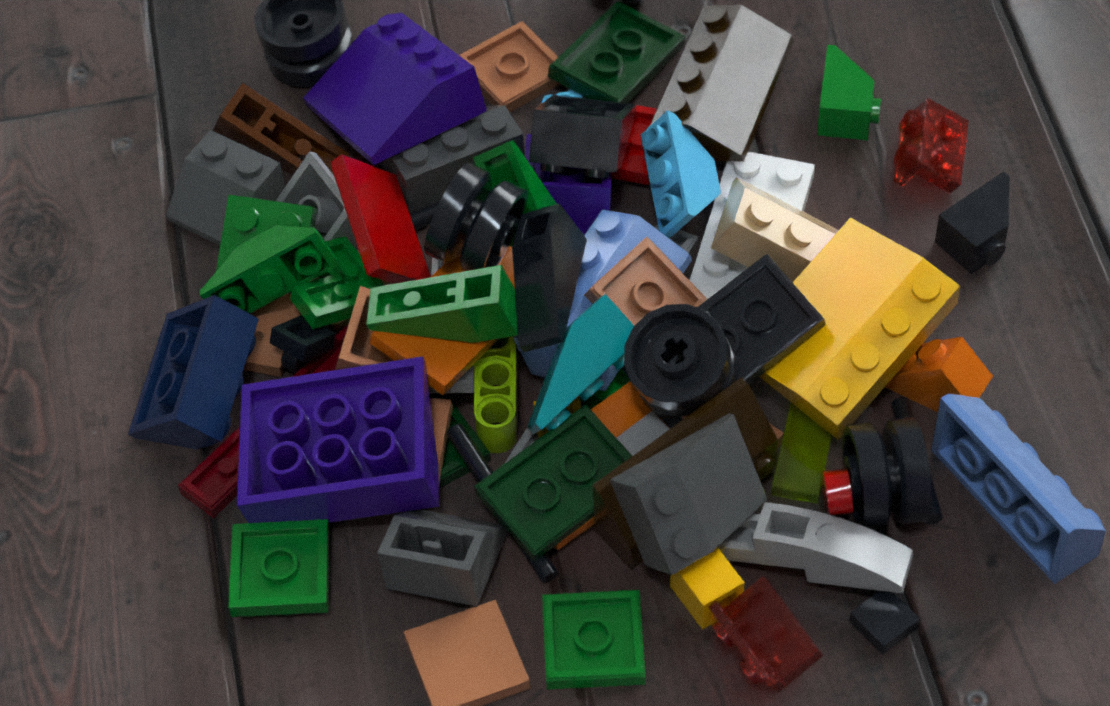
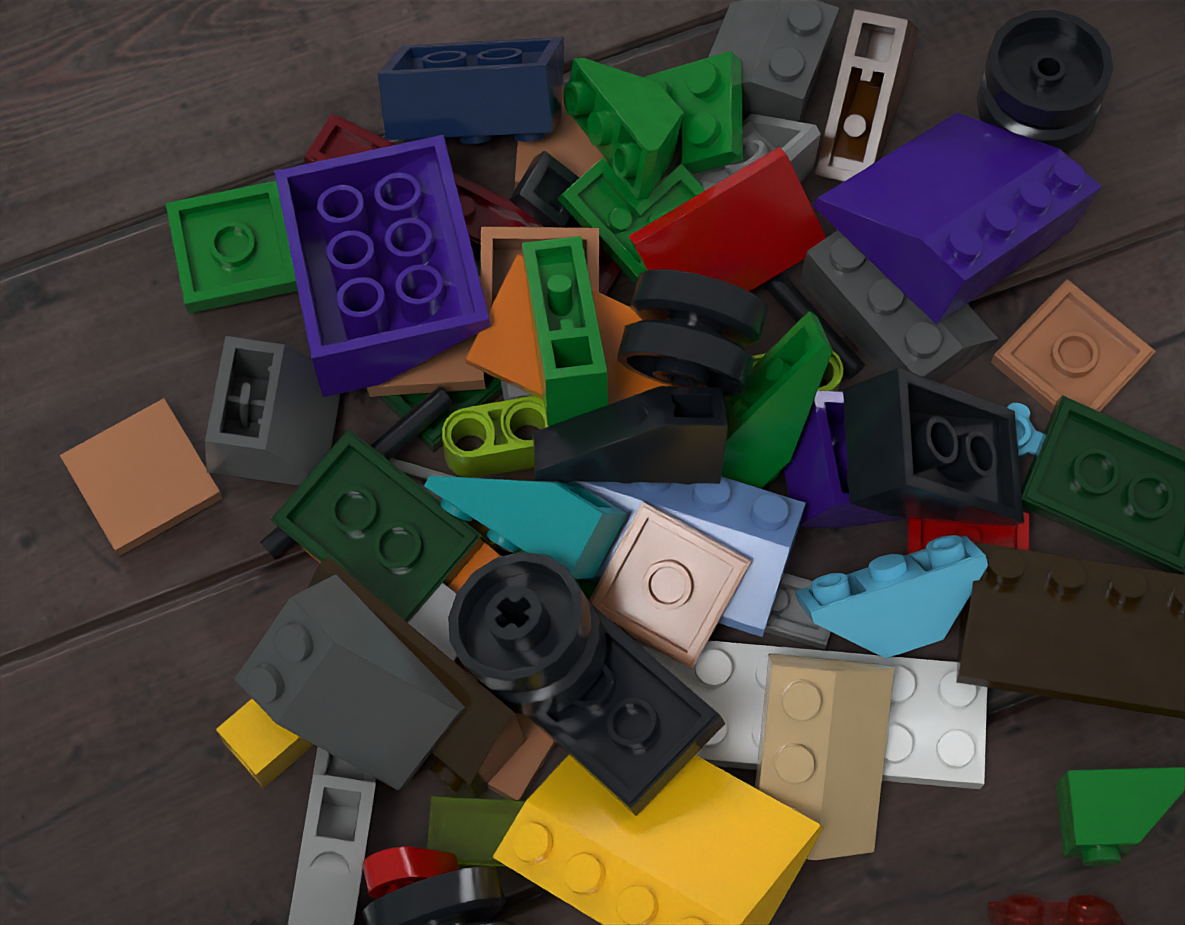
camera: 75 degrees right, 15 degrees up
(593, 639) = (187, 616): green tile -> none
(767, 636) = (201, 813): clear red bracket -> none

